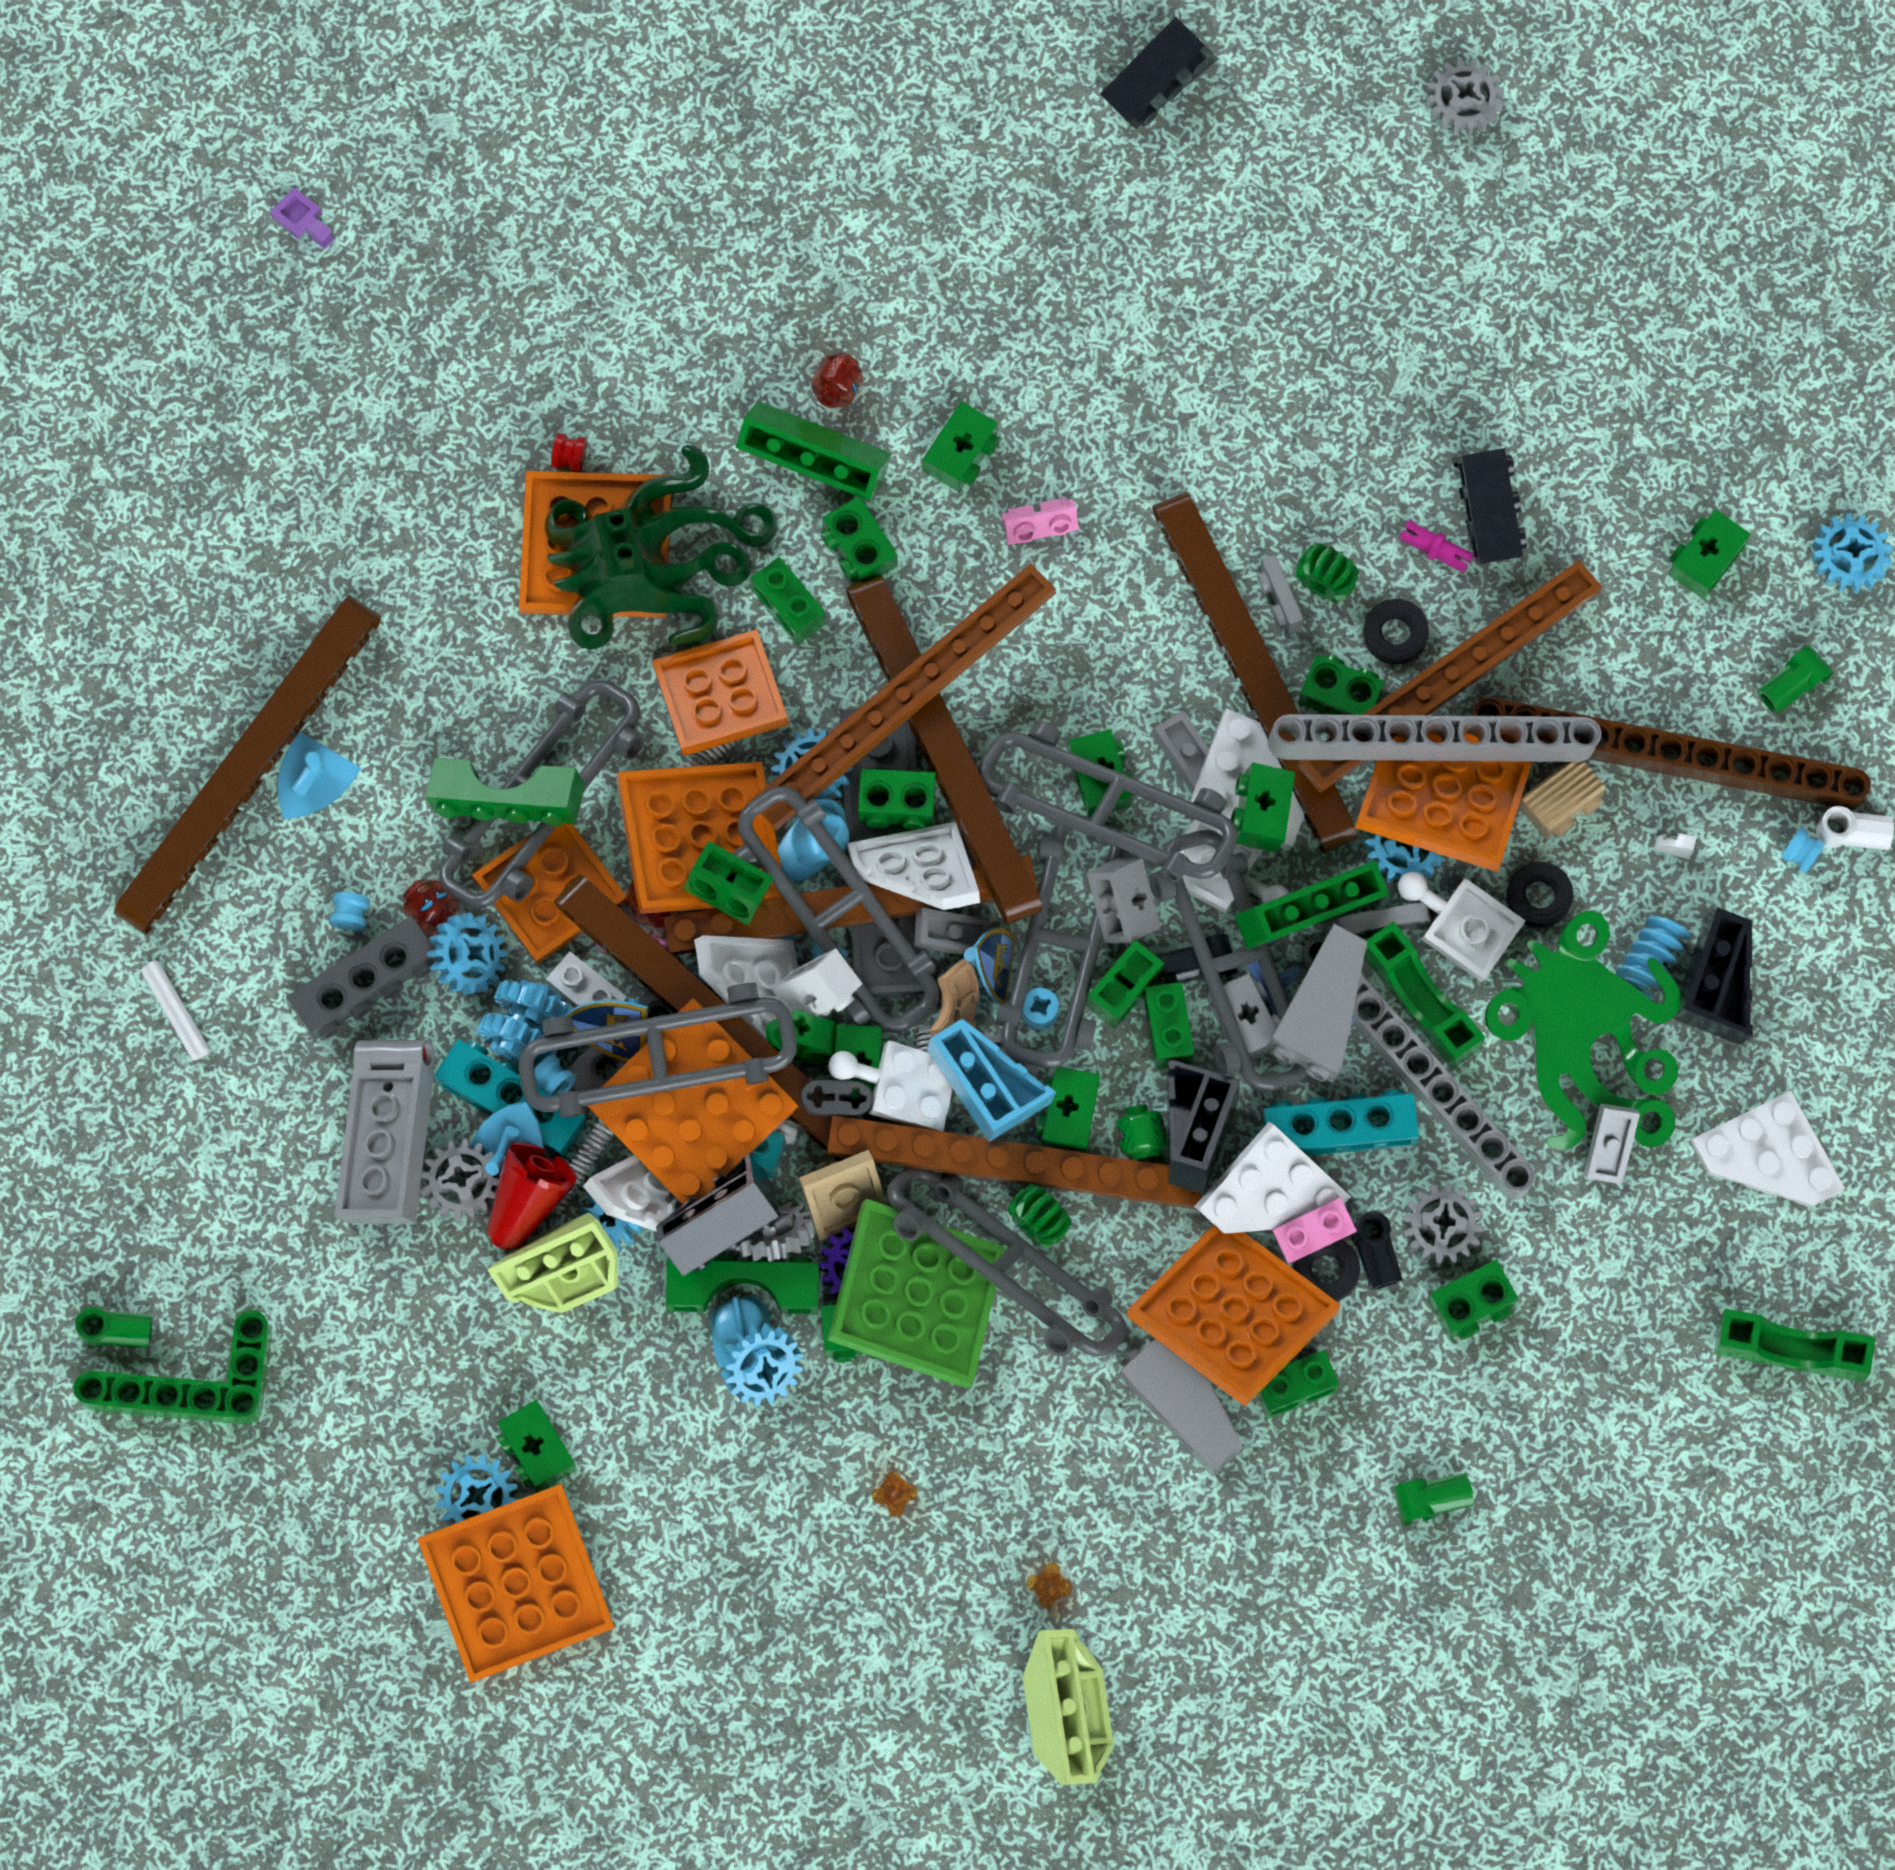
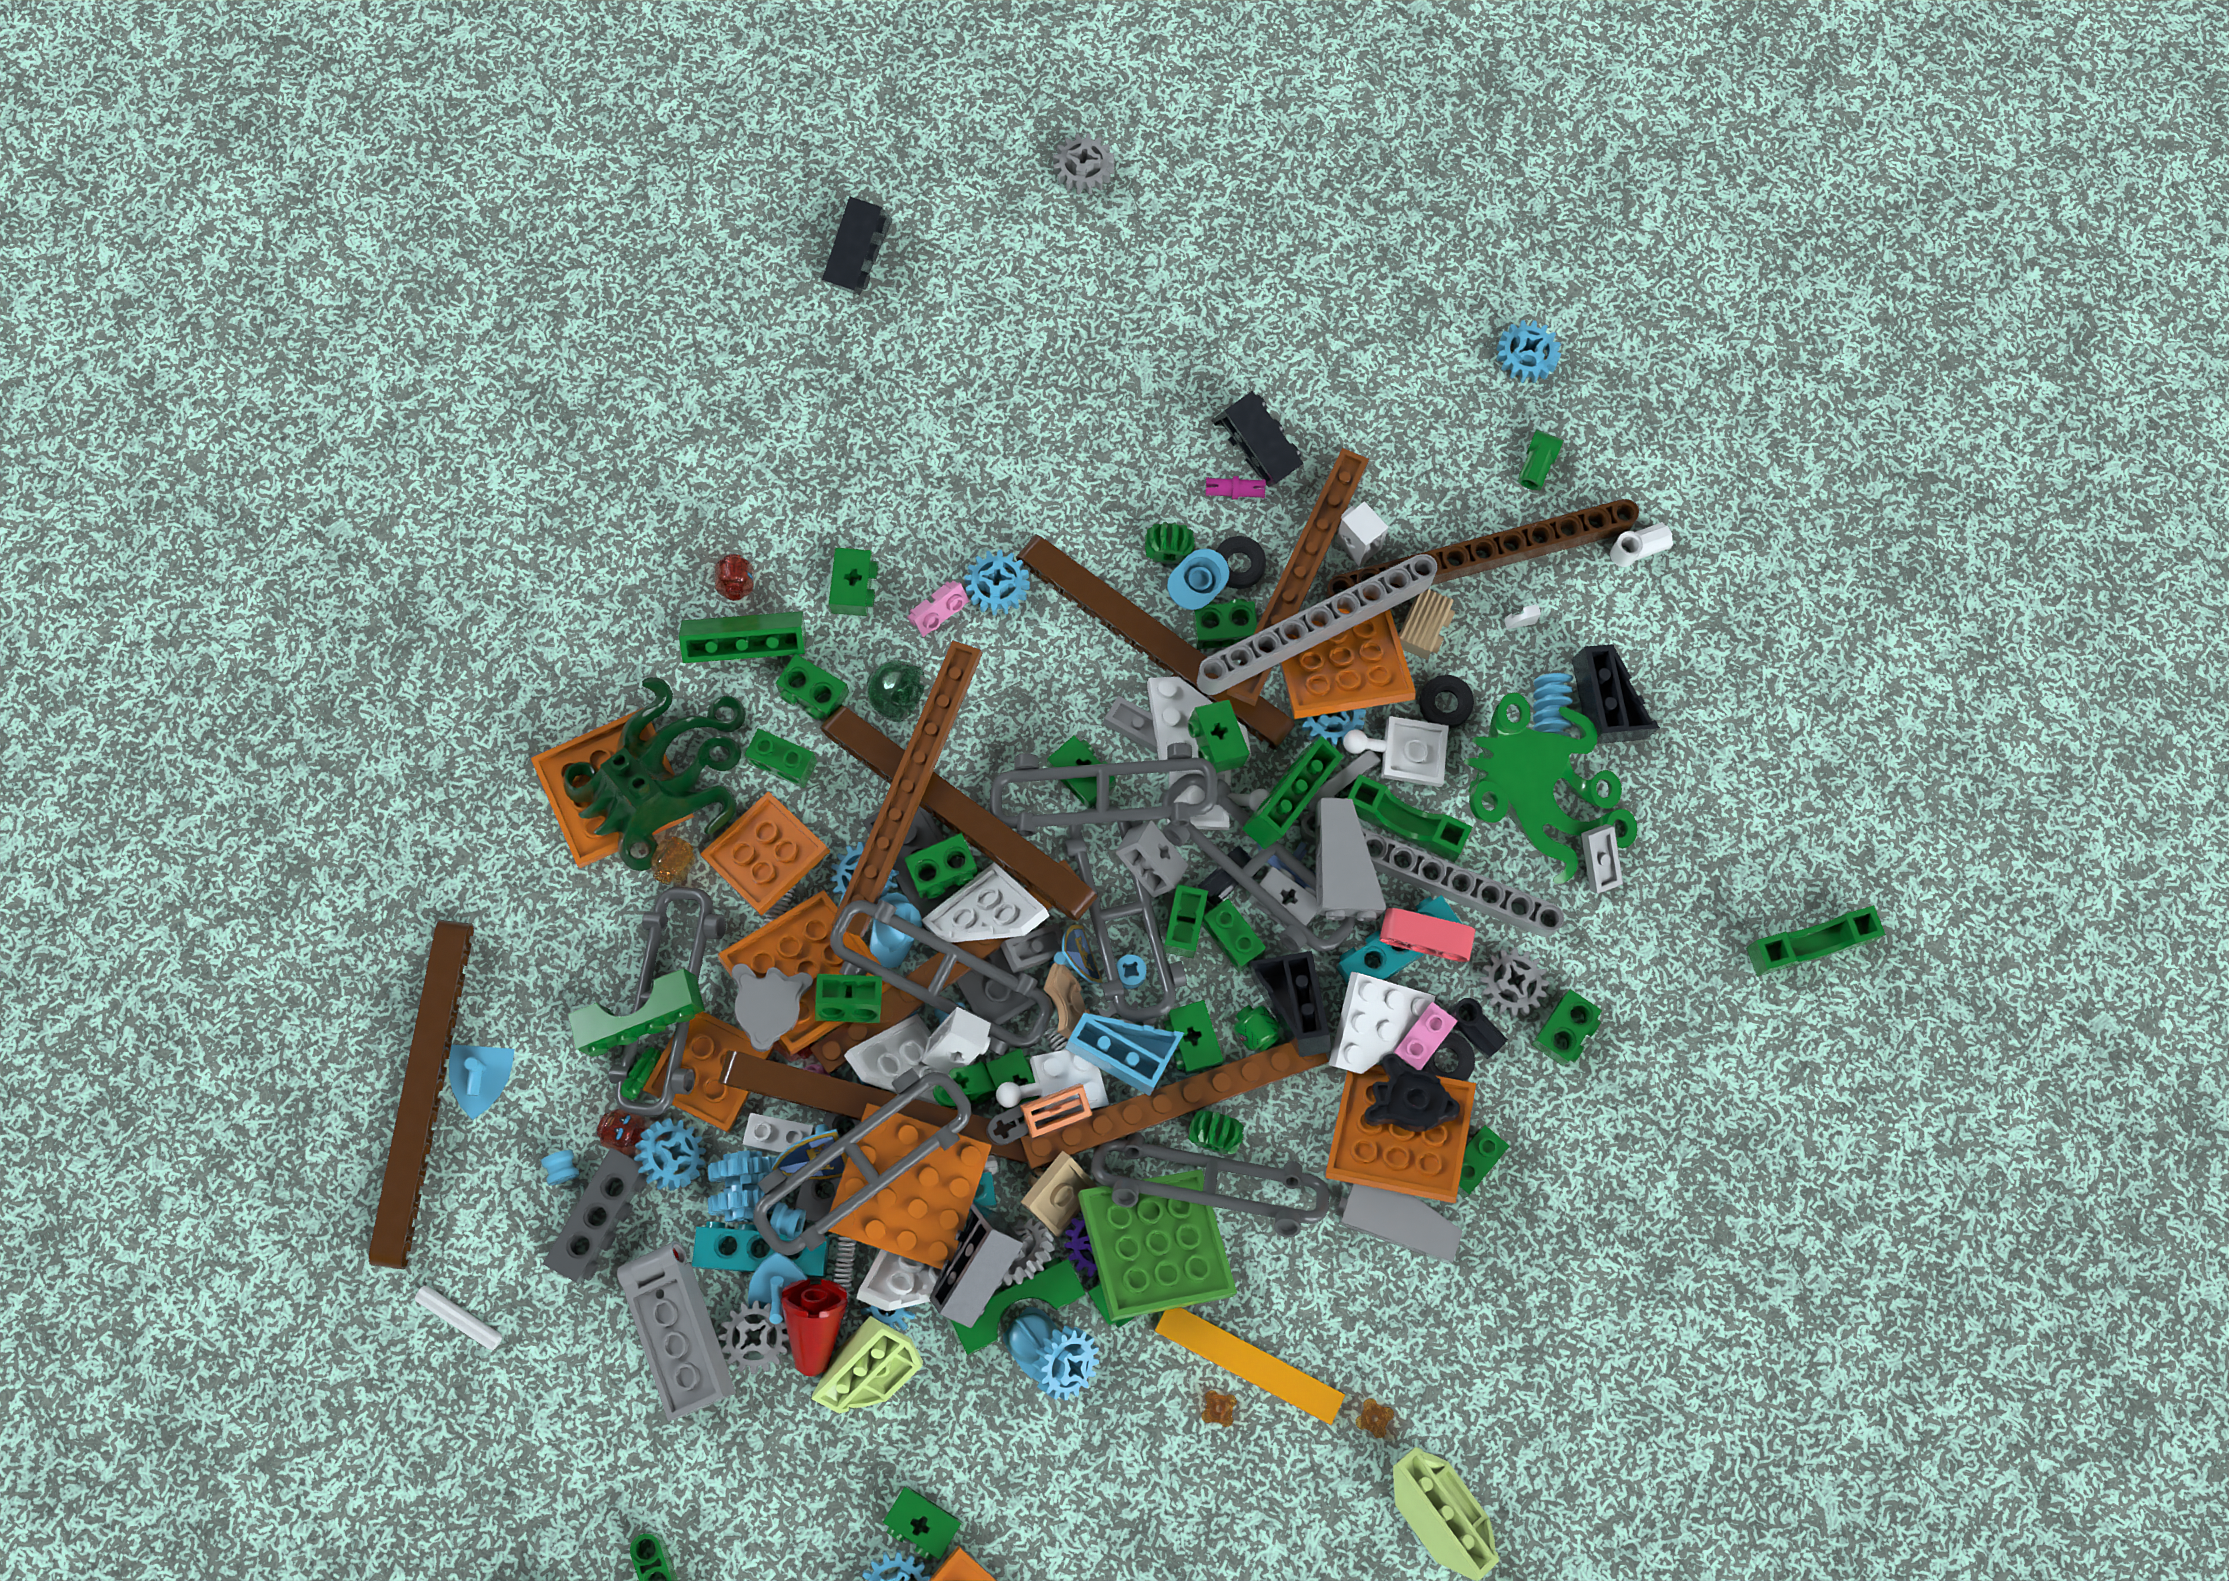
camera: 30 degrees left, 0 degrees up
(301, 215) = (259, 649): medium lavender plate -> none
(478, 856) = (640, 1073): none -> green axle
(568, 452) = (556, 728): red wheel -> none
(620, 653) = (672, 860): none -> clear orange head
(643, 849) = (768, 1004): none -> light grey tile
(852, 1101) = (1052, 1098): none -> orange tile
(947, 579) = (897, 683): none -> clear green cylinder
(950, 1466) = (1250, 1363): none -> light orange tile
(1124, 510) = (1009, 584): none -> medium azure gear
(1259, 1283) = (1410, 1099): none -> black tile
(1274, 582) = (1134, 569): light grey plate -> none
(1336, 627) = (1198, 579): none -> medium azure piece
(1372, 1125) = (1427, 934): none -> coral beam
(1428, 1498) = (1614, 1199): green piece -> none
(1543, 664) = (1361, 533): none -> white brick
(1703, 573) = (1436, 385): green brick -> none
(1771, 1153) = (1713, 807): white plate -> none
(1803, 850) = (1614, 577): medium azure wheel -> none

